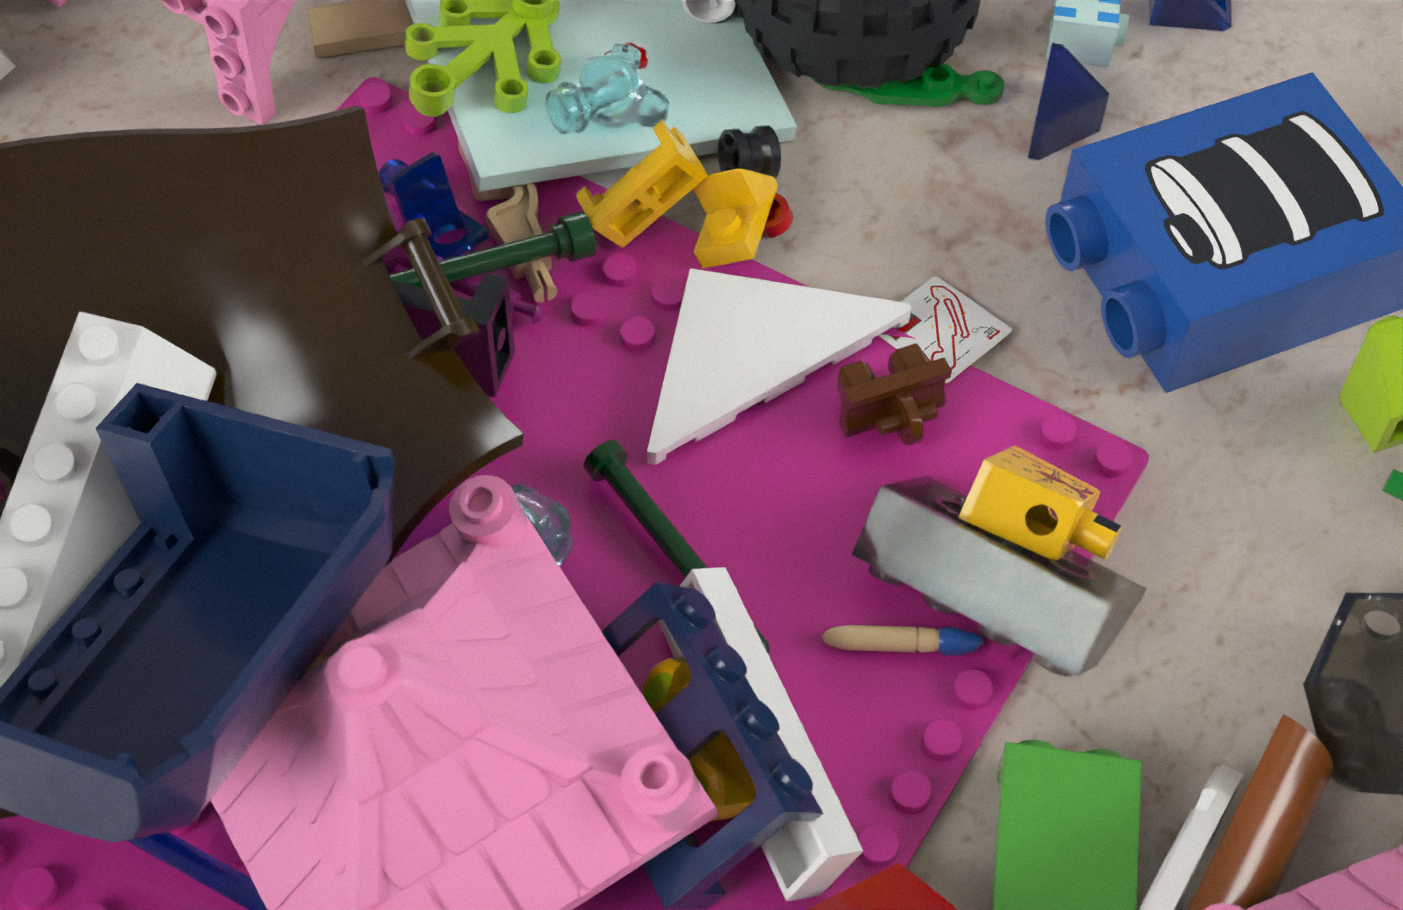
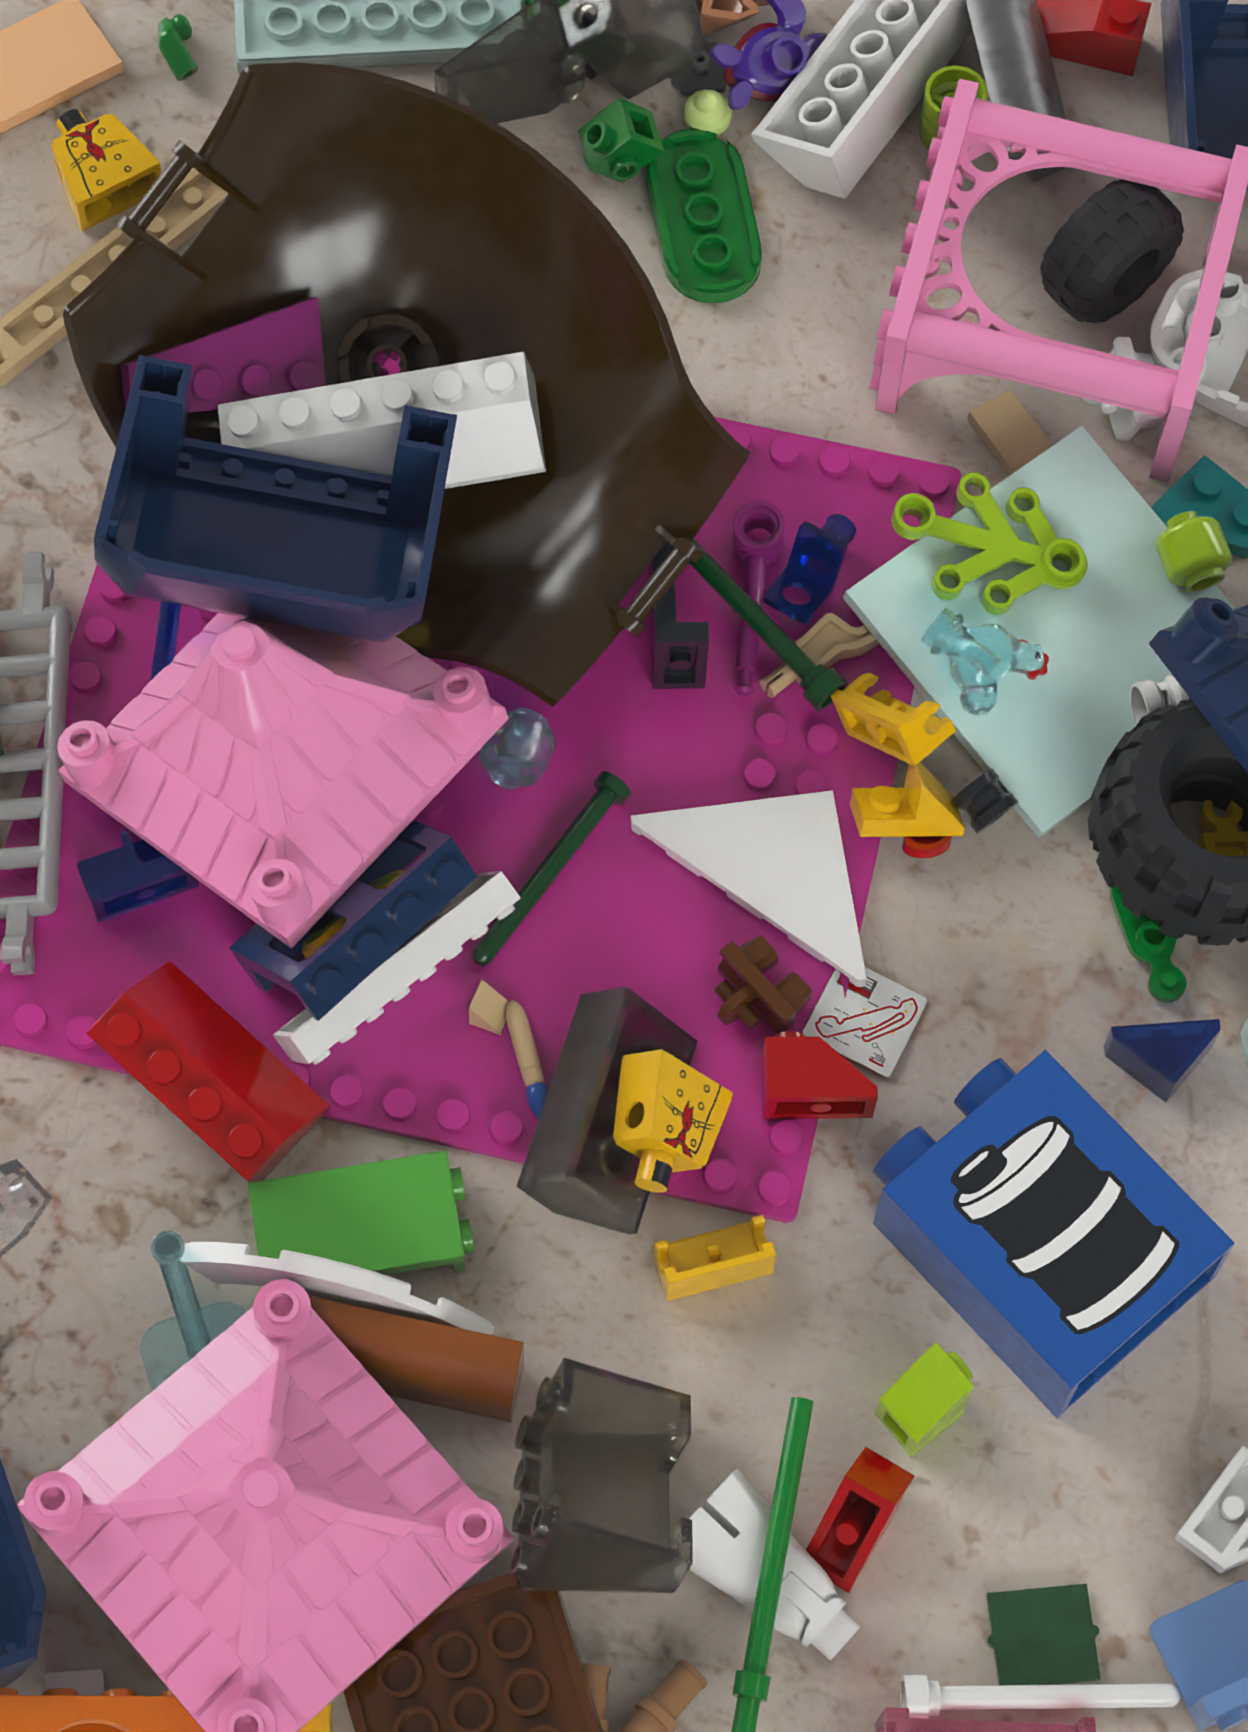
camera: 70 degrees right, 10 degrees up
(825, 663) = (488, 1009): none -> tan piece
(1010, 382) = (812, 1081): none -> red slope
(1182, 532) = (714, 1259): none -> yellow hinge

